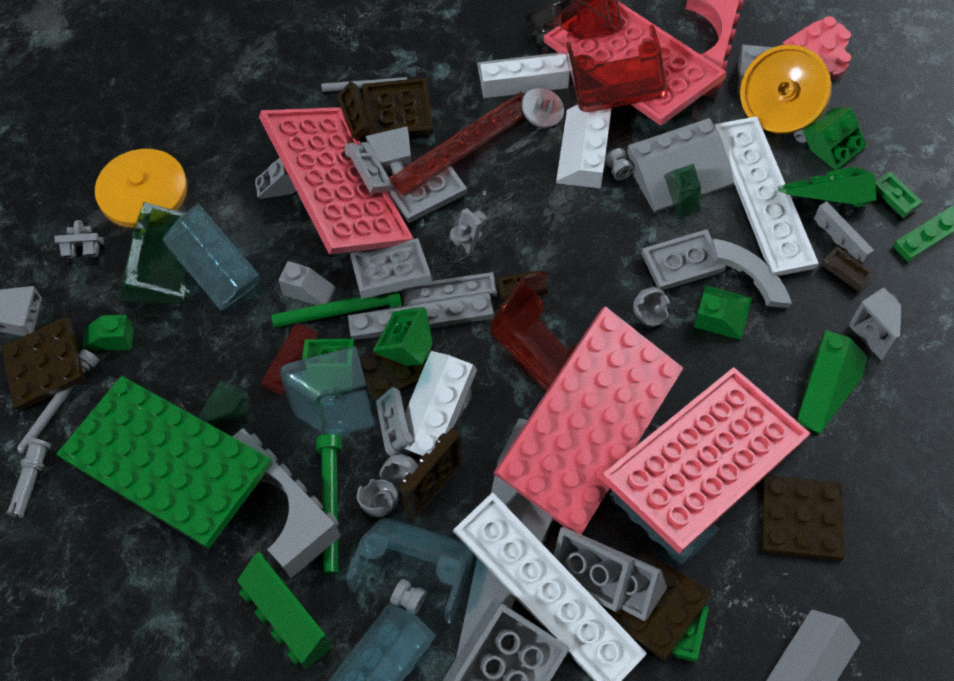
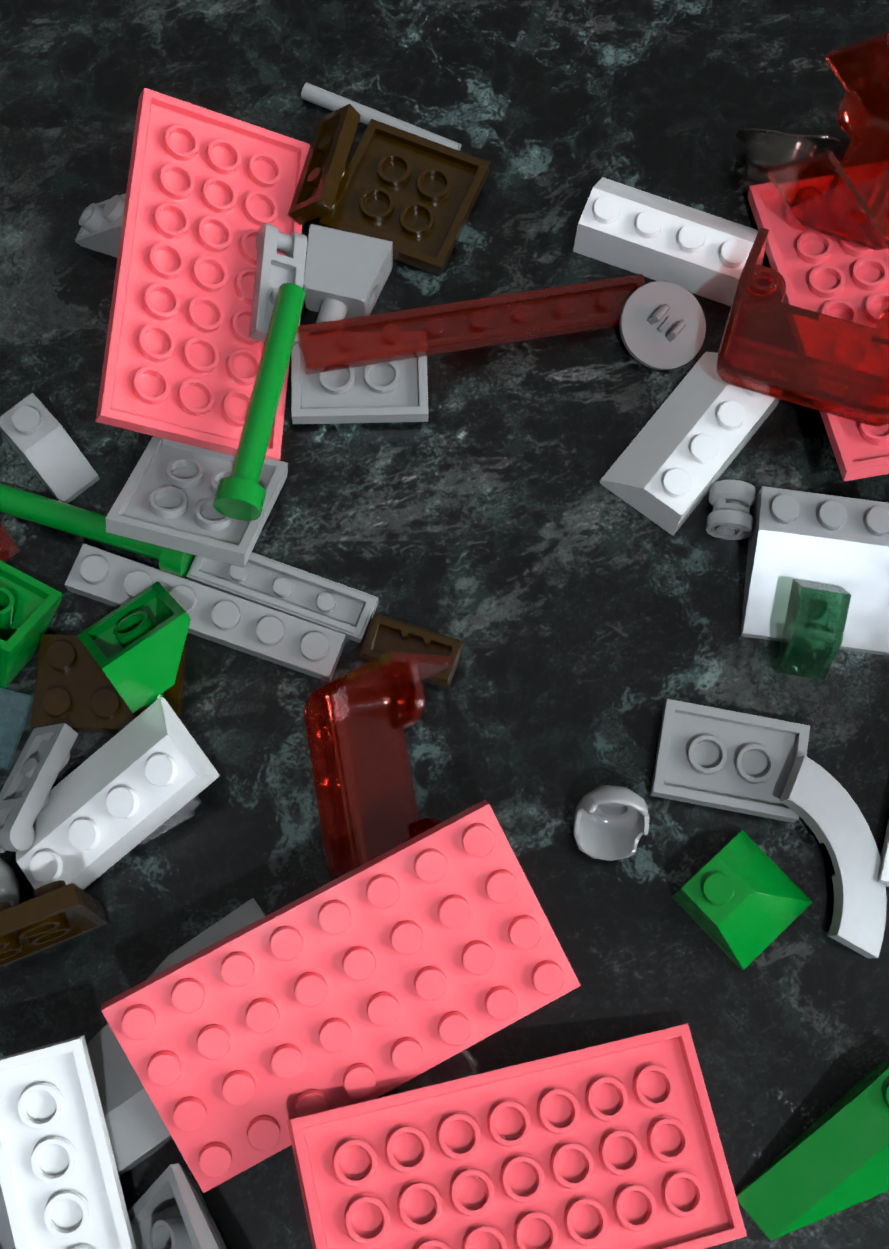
camera: 25 degrees right, 10 degrees up
(412, 251) = (240, 493): none -> green piece
(468, 229) = (375, 498): light grey hips -> none

